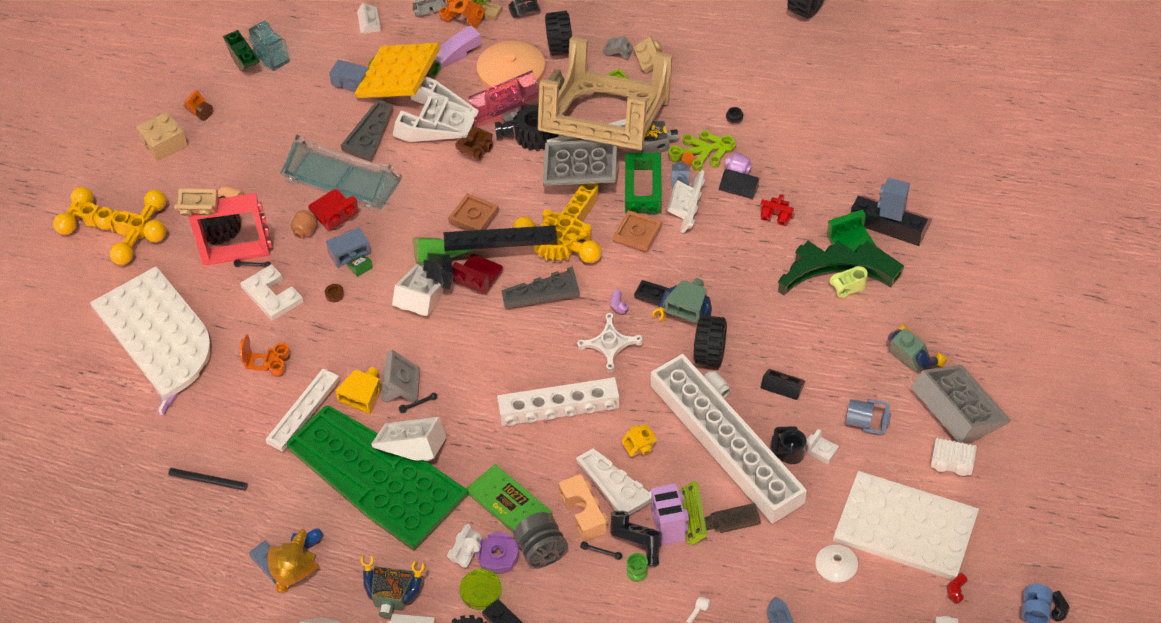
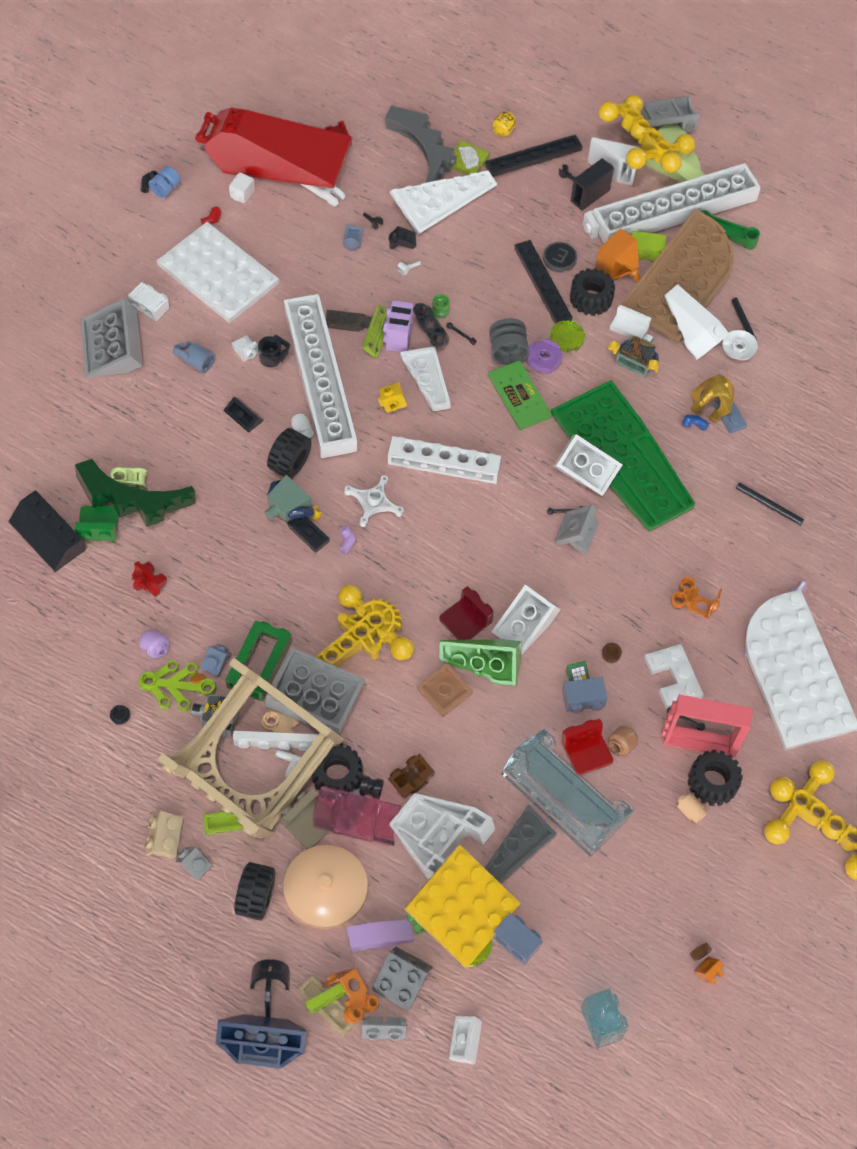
camera: 165 degrees left, 10 degrees up
(161, 136) = (757, 927): tan brick -> none
(197, 201) = (743, 708): tan bracket -> none
(240, 50) = (639, 1029): dark green slope -> none
(302, 409) = (671, 535): white plate -> none
(360, 390) = (615, 533): yellow torso -> none
(427, 32) = (401, 977): none -> bracket
(438, 268) = (502, 623): black arch -> none
(466, 545) = (567, 361): white hips -> none
(500, 238) = (434, 625): black plate -> none
(542, 290) = (409, 577): dark grey wing -> none
(577, 493) = (462, 377): light nougat arch -> none
(637, 230) = (292, 608): nougat plate -> none
(684, 200) = (227, 622): white bracket -> none
(739, 183) = (164, 624): black slope -> none
(836, 570) = (286, 265): white dish -> none
(893, 199) = (45, 506): sand blue brick -> none
(913, 350) = (123, 393): sand green torso -> none

